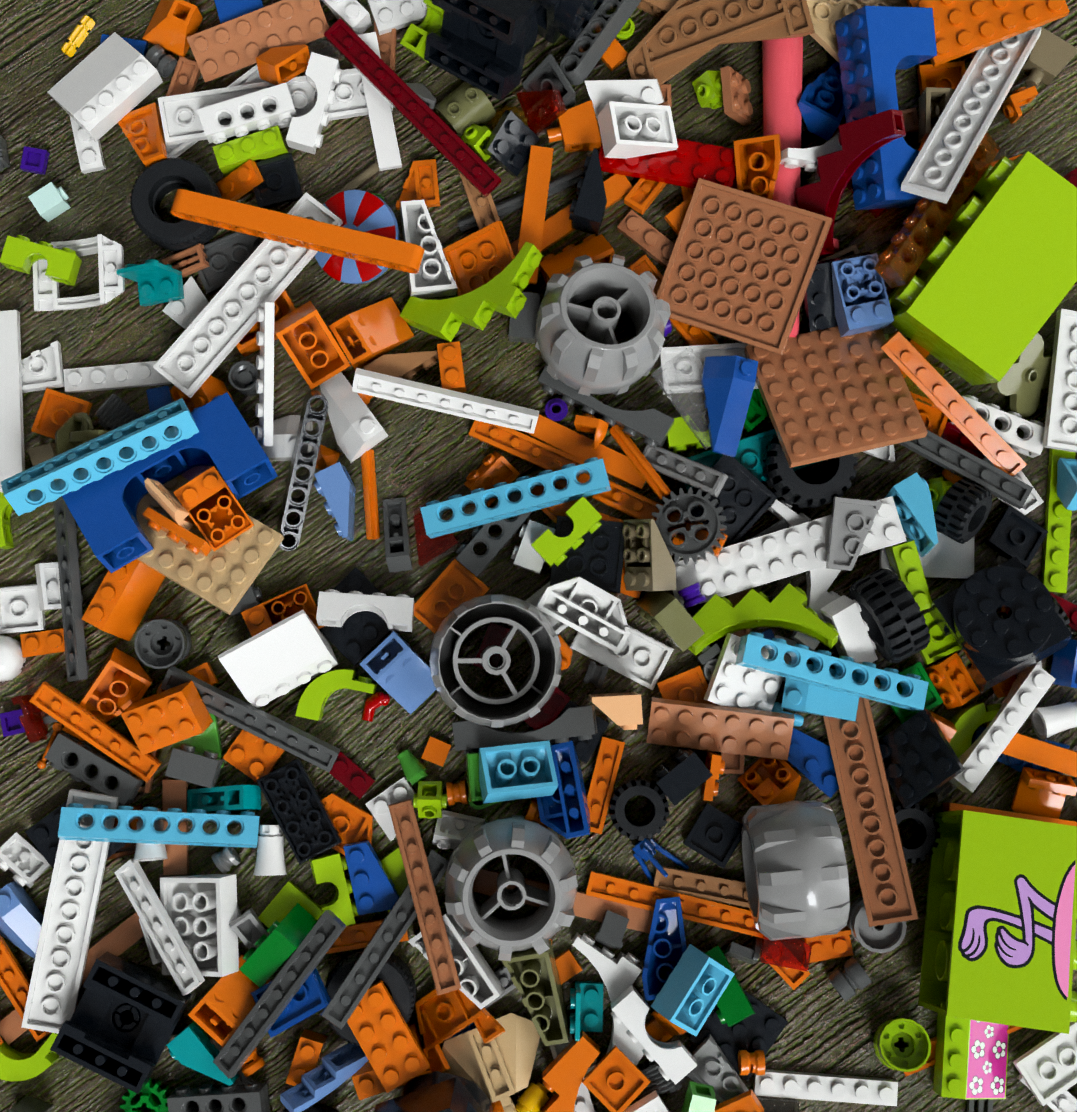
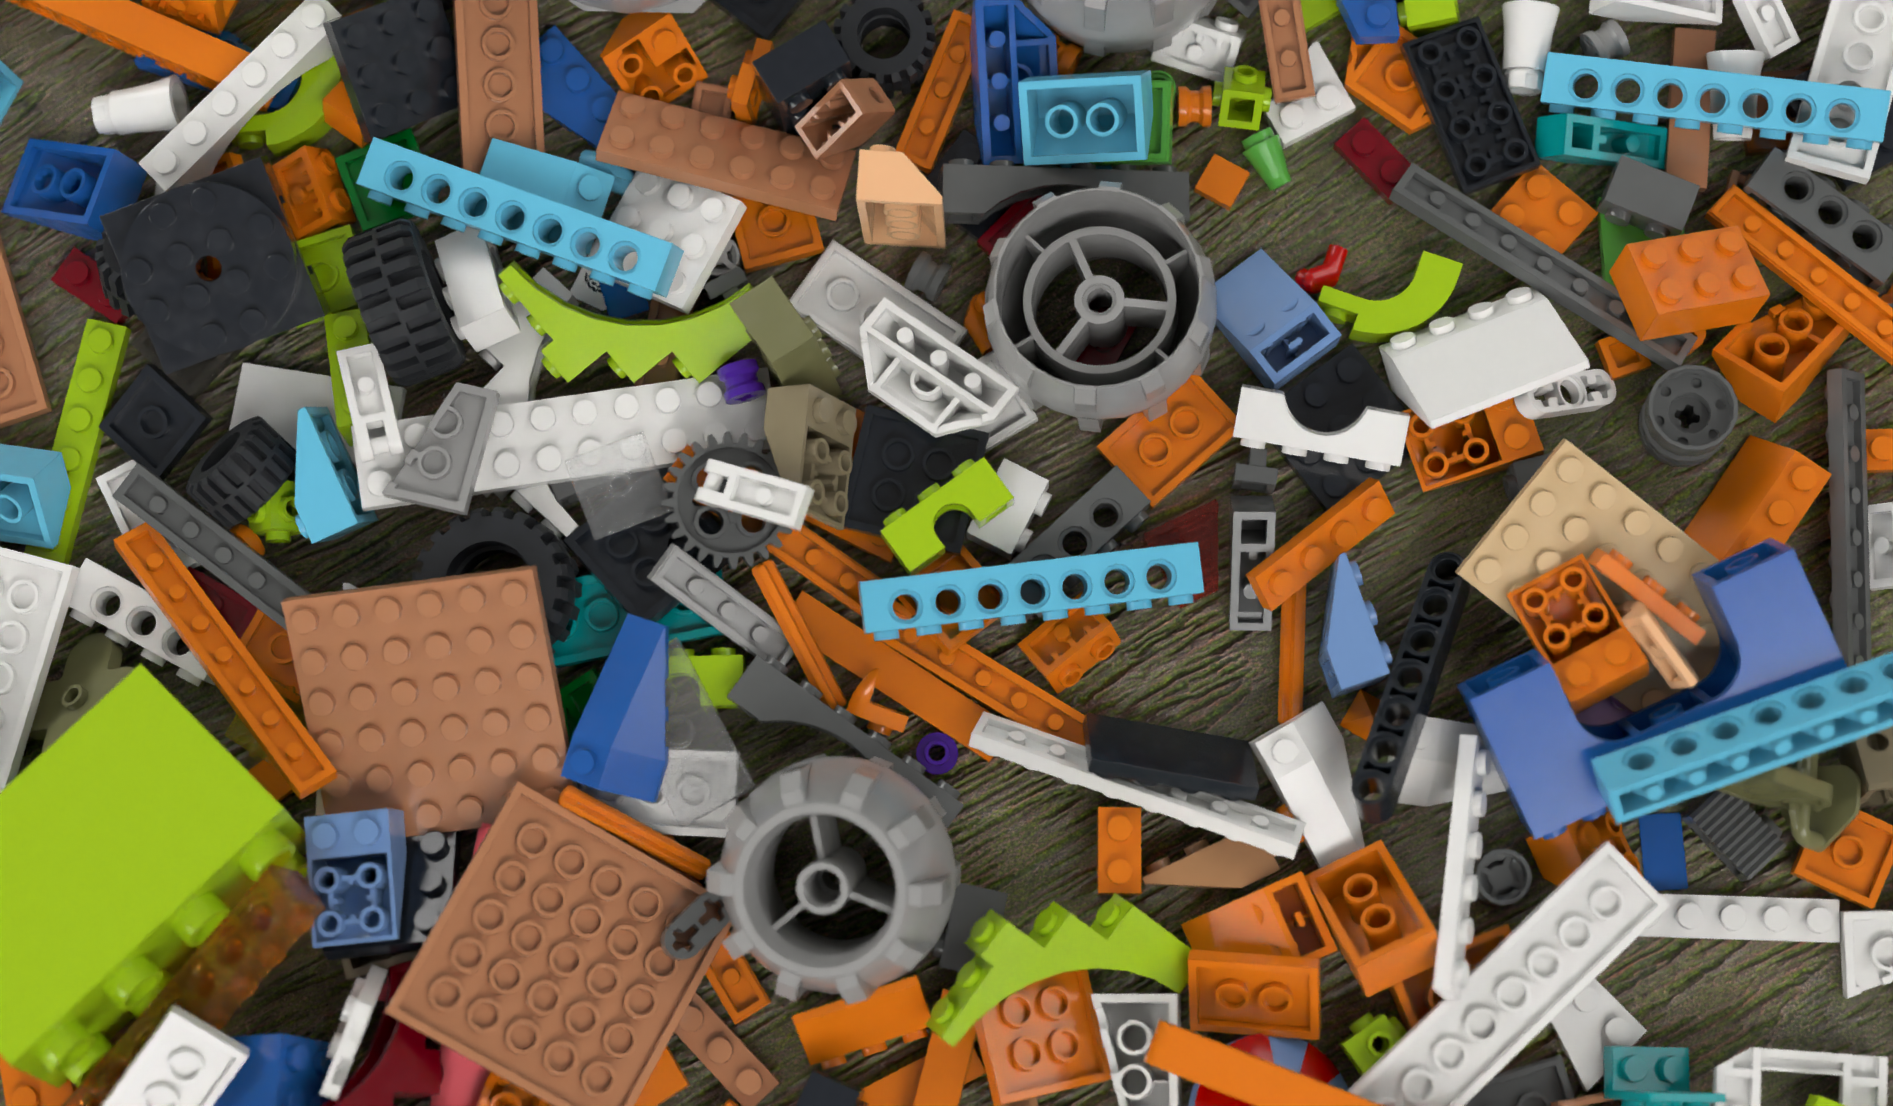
camera: 165 degrees left, 5 degrees down
(223, 645) = (1576, 386): none -> white beam
(306, 285) = (1359, 1044): none -> lime brick
(359, 547) = (1320, 544): none -> orange plate
(370, 298) = (1254, 994): none -> orange plate
(399, 584) = (1255, 475): none -> dark grey tile
(429, 418) = (1170, 757): none -> black tile
(646, 764) = (856, 106): none -> nougat torso
(674, 522) = (755, 494): none -> white plate
(679, 296) = (689, 917): none -> dark grey beam
(714, 341) = (634, 832): none -> orange axle
(752, 528) = (618, 485): none -> clear plate
(847, 215) = (352, 1029): none -> white wing
(898, 552) = (369, 401): none -> white plate

